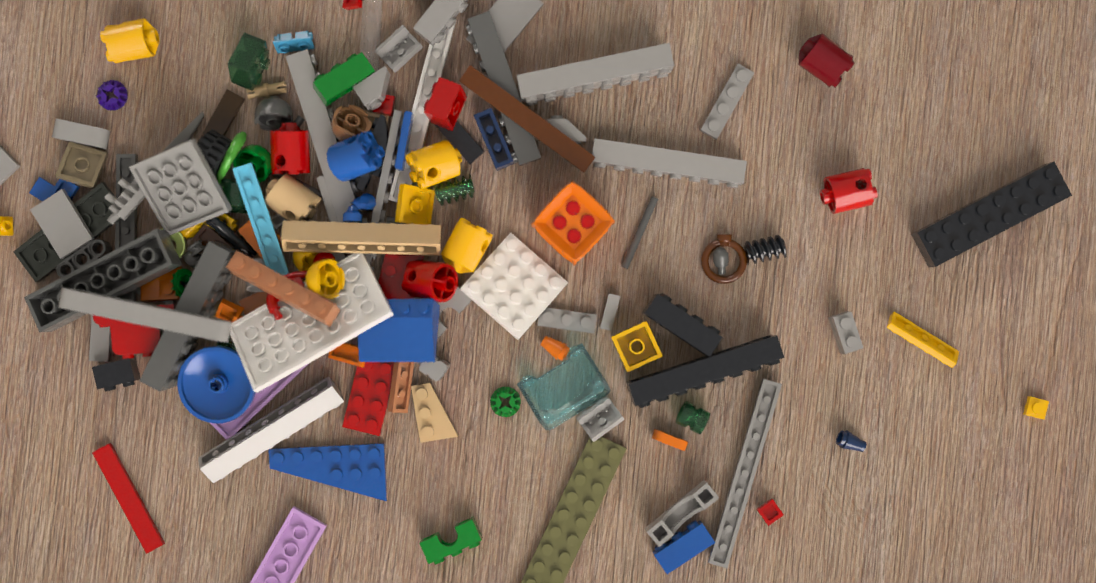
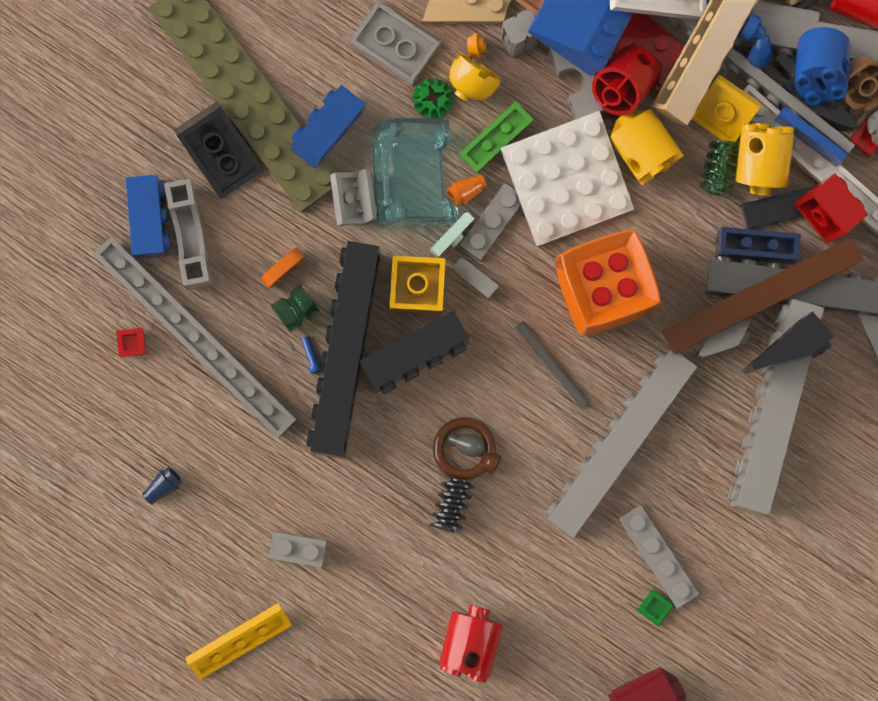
camera: 120 degrees right, 5 degrees down
(456, 391) = (476, 46): none -> light orange plate
(480, 382) = (472, 79): none -> yellow cylinder
(481, 446) = (395, 43): none -> light grey tile
(510, 346) = (496, 135): none -> bright green plate
(554, 80) = (802, 340): none -> black slope
(562, 461) = (327, 126): none -> blue brick
(590, 340) = (452, 236): none -> light aqua plate
(614, 524) = (218, 150): none -> black slope
(714, 393) = (314, 366): none -> blue piece
(760, 87) = (655, 607): none -> green tile

